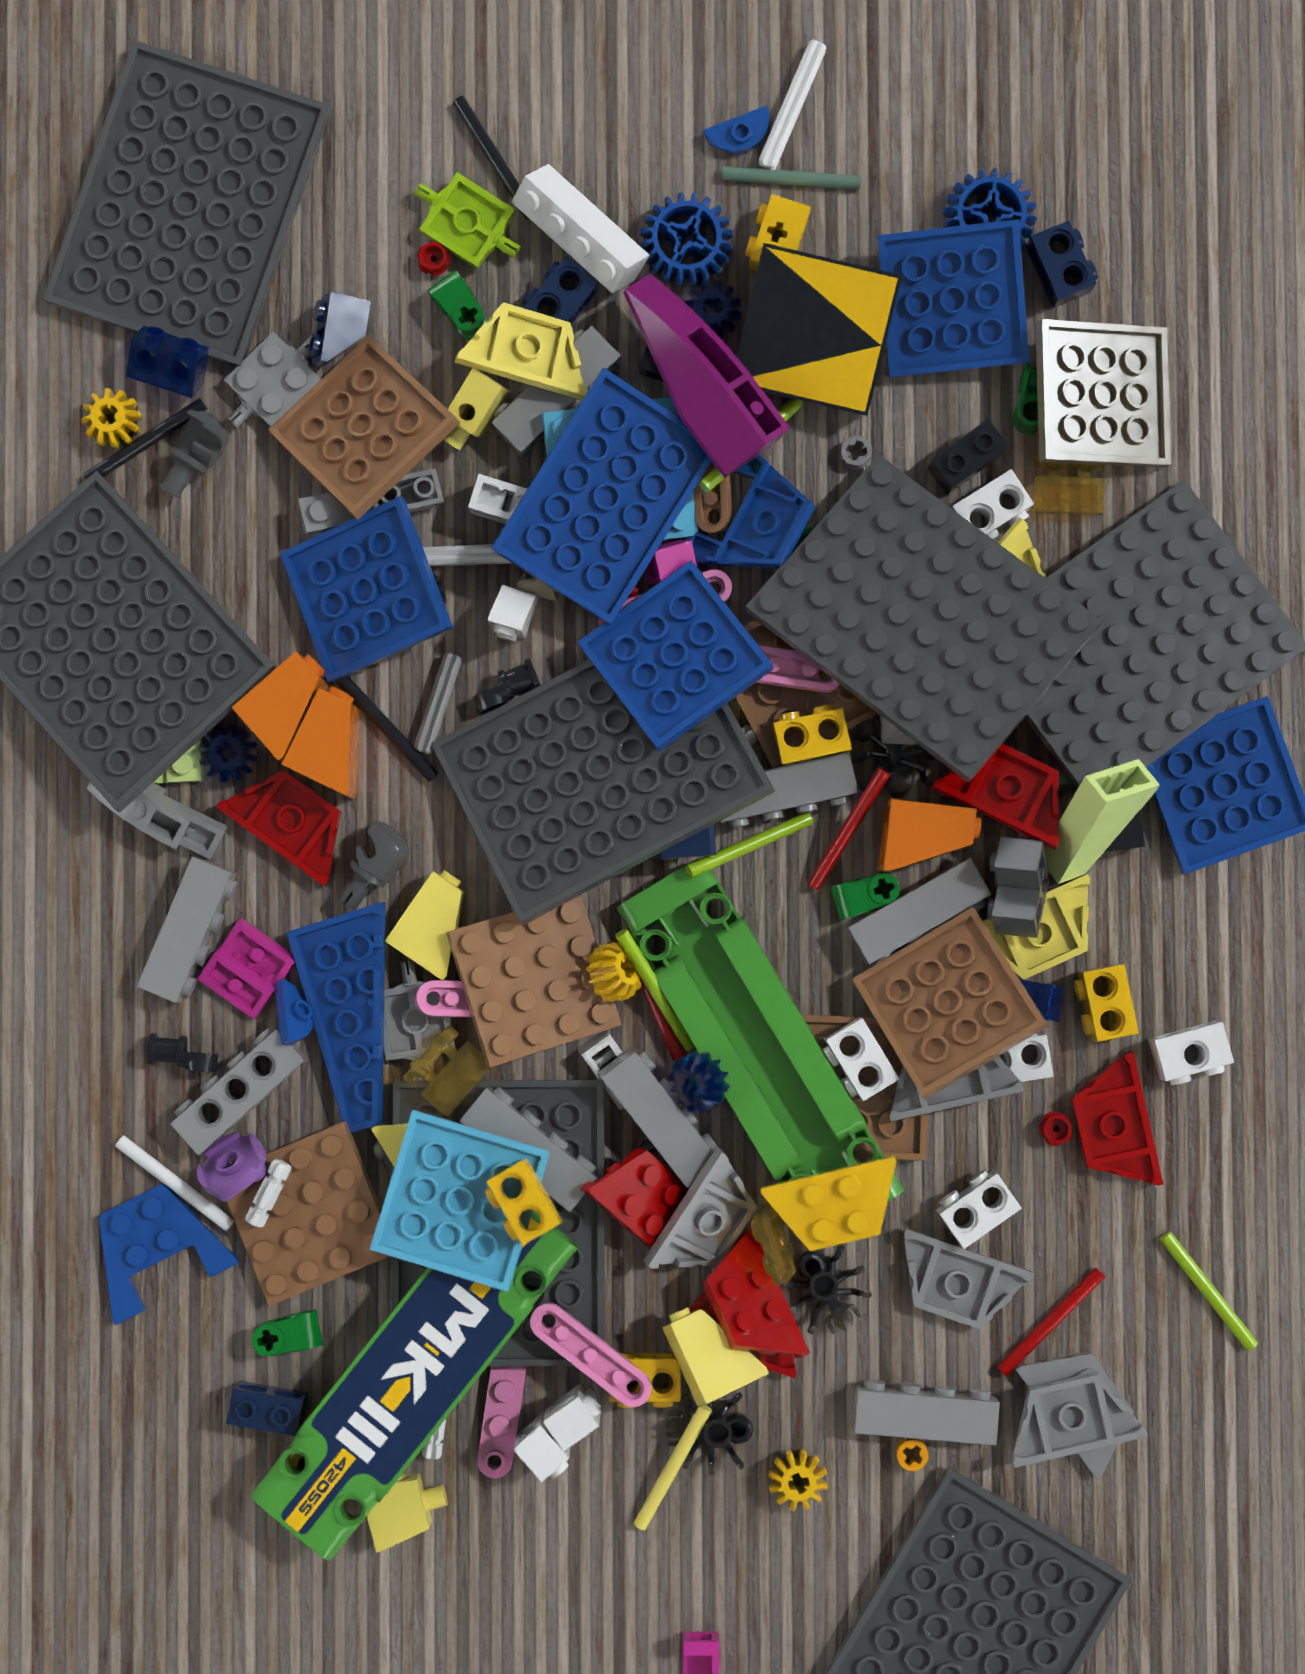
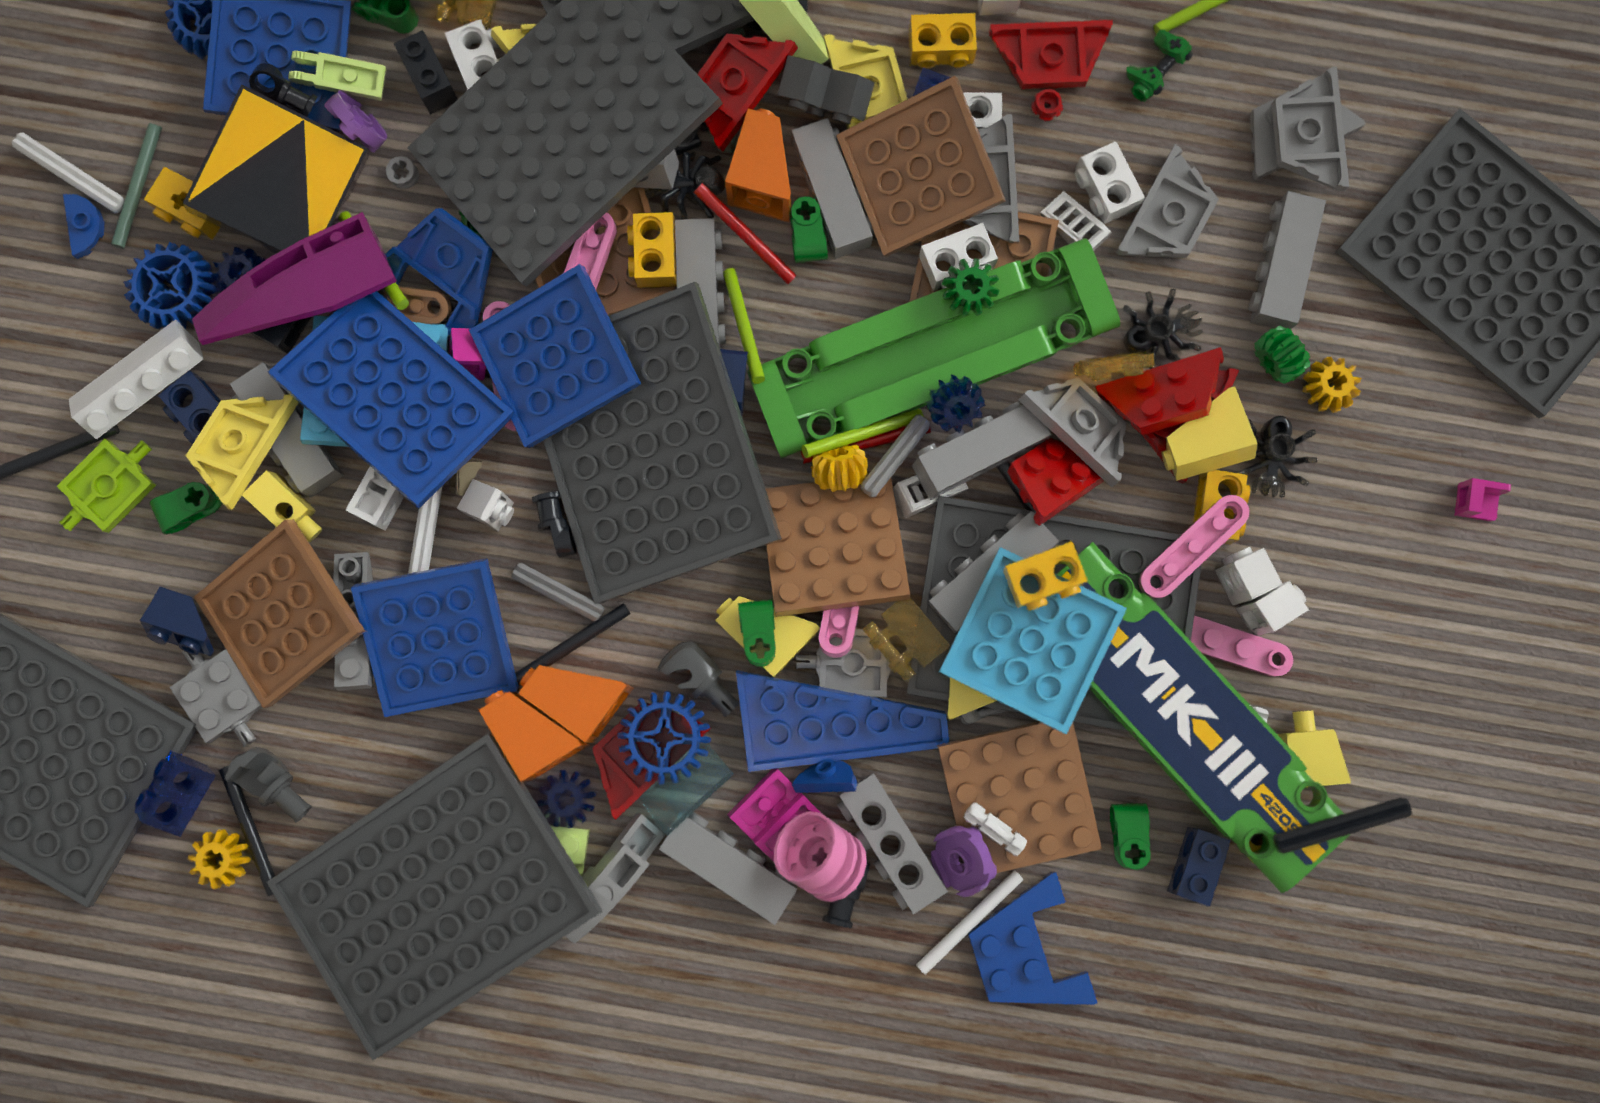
camera: 80 degrees left, 5 degrees down
(210, 1020) = (820, 856): none -> bright pink wheel
(260, 871) = (675, 802): none -> clear light blue piece
(304, 857) = (641, 736): none -> blue gear
(325, 1544) = (1342, 825): none -> black axle
(431, 915) = (757, 626): none -> green piece
(433, 249) = (126, 522): red plate -> none
(637, 1028) = (895, 456): none -> light grey axle
(672, 1467) = (1305, 496): light yellow bar -> none
(818, 1421) = (1282, 354): none -> green gear
(834, 1079) = (975, 277): none -> green gear
(835, 1203) = (1088, 297): yellow wing -> none
(895, 397) = (355, 121): none -> medium lavender plate
(910, 314) = (282, 91): none -> black connector
(913, 1465) = (1331, 281): light orange bush -> none
(938, 1186) = (1090, 222): none -> white slope
(944, 371) = (340, 73): none -> yellowish green hinge
(1051, 1321) = (1219, 140): red bar -> none
(1103, 1235) = (1149, 80): none -> green piece

